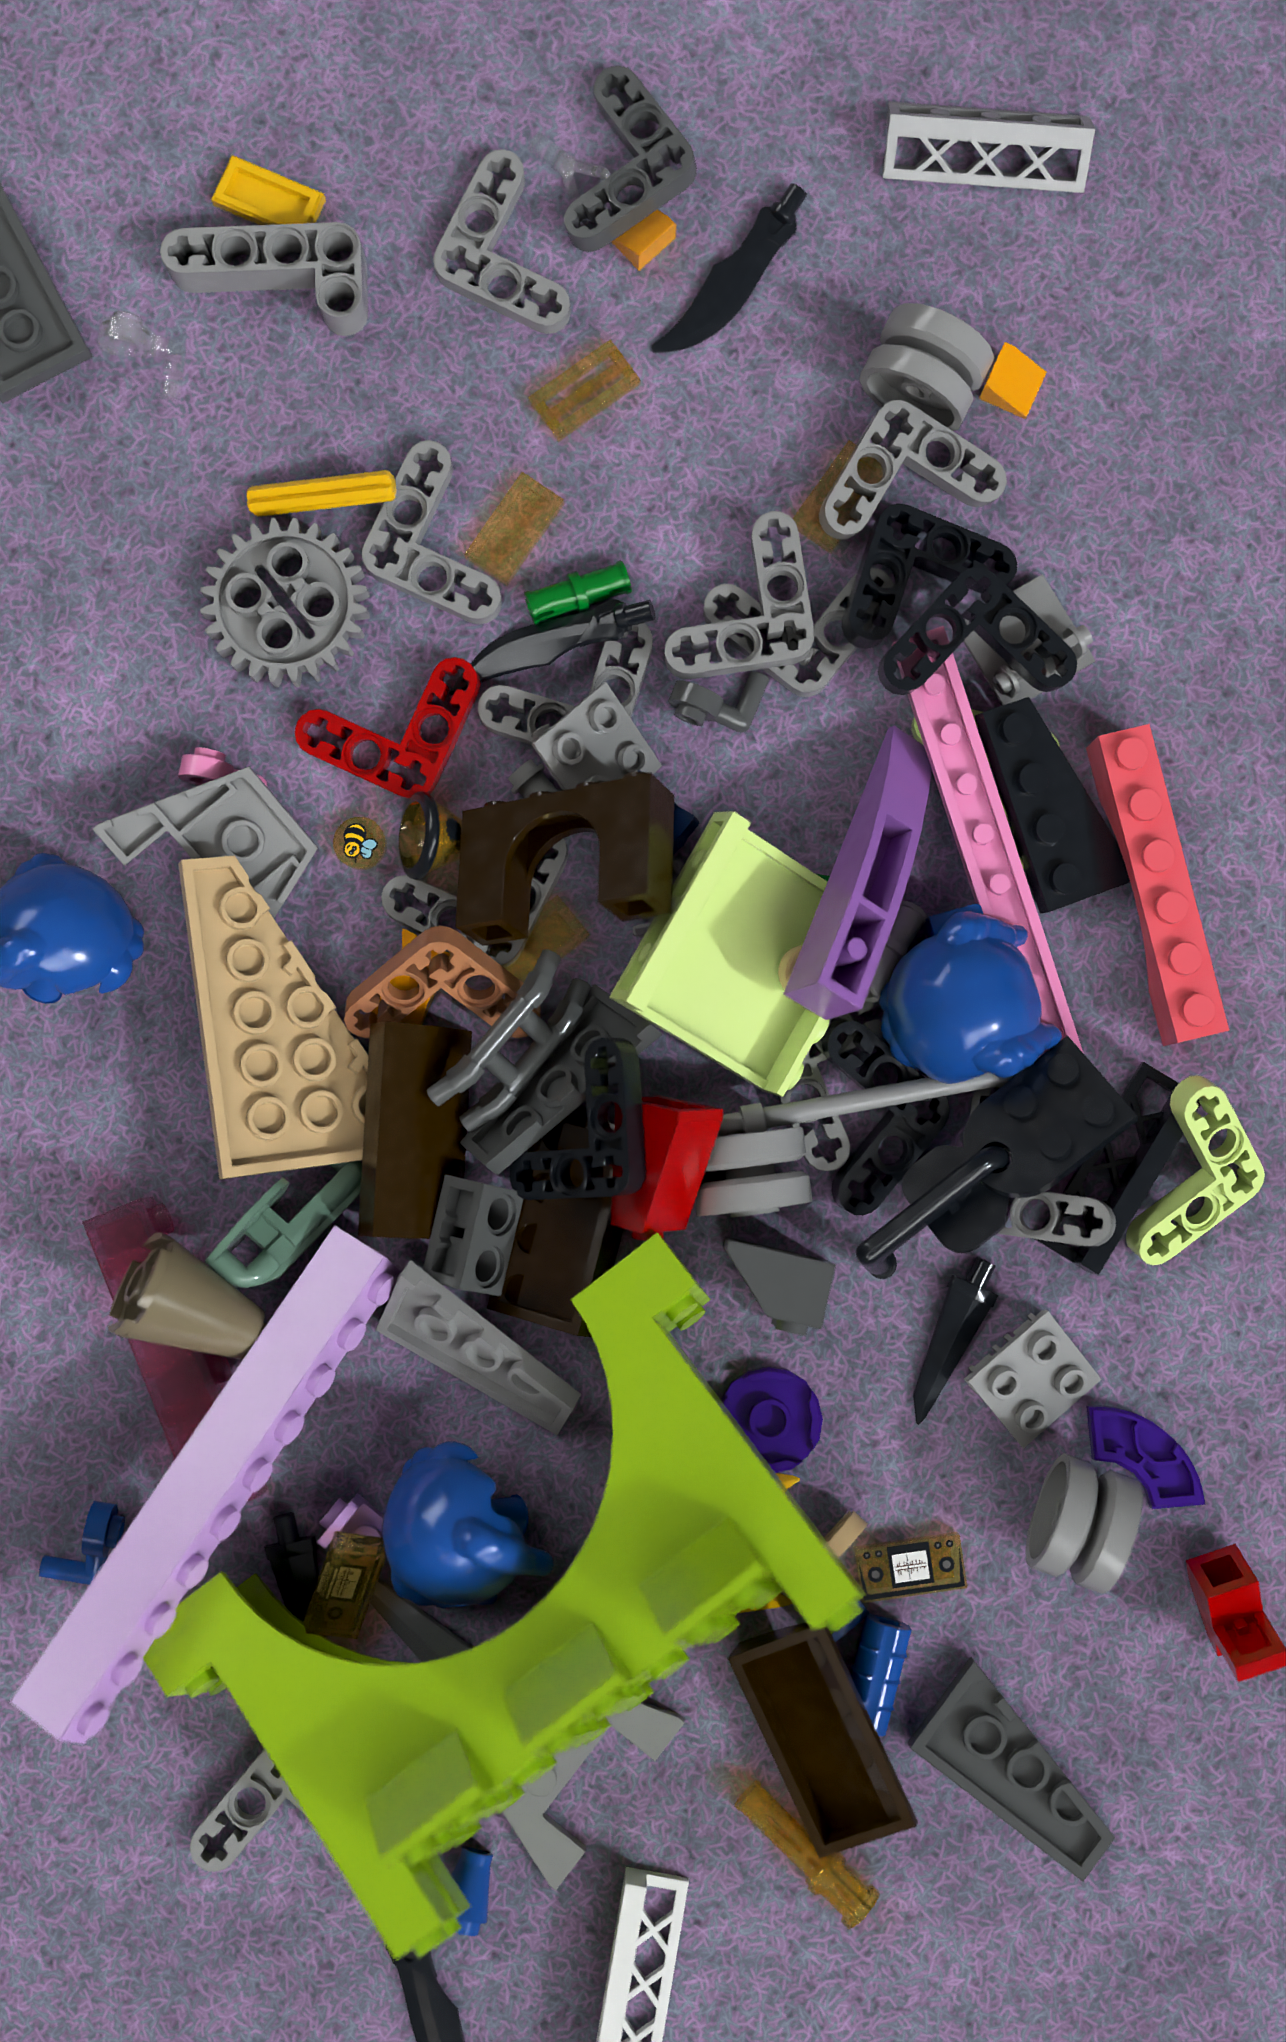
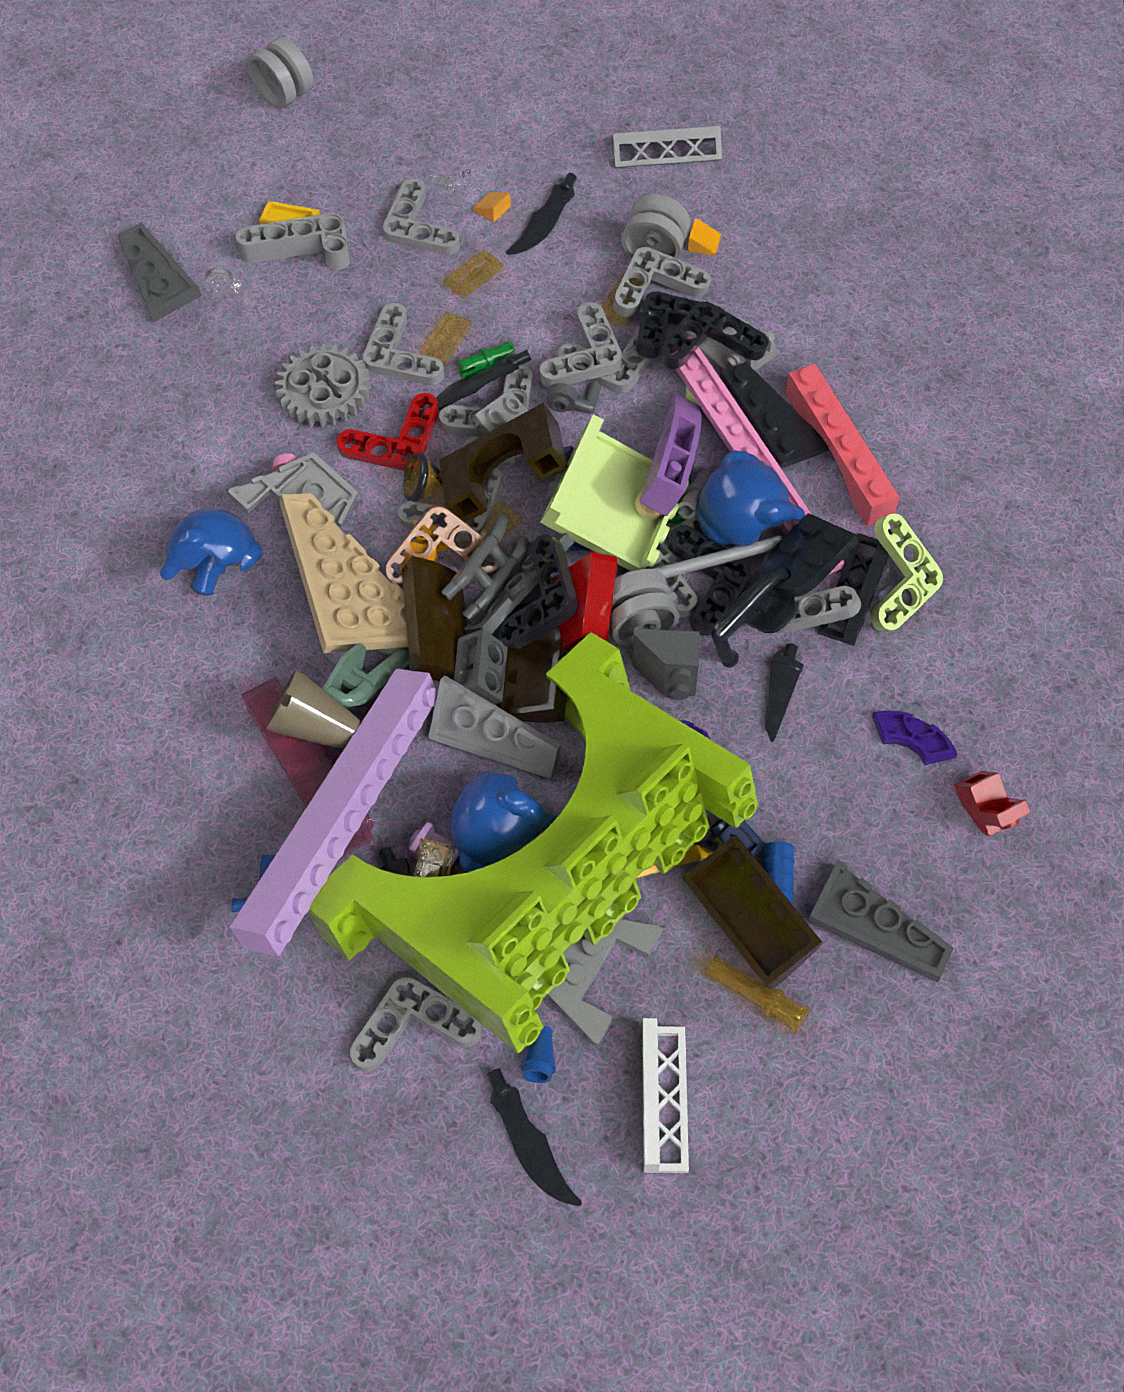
camera: 10 degrees left, 25 degrees down
(321, 493) = (337, 333): yellow axle -> none
(360, 843) = (381, 493): tile -> none
(649, 157) = (495, 173): dark grey beam -> none
(910, 1567) = (786, 818): tile -> none
(1032, 1377) = (834, 700): light grey hinge -> none
(1084, 1523) = (889, 762): light grey wheel -> none

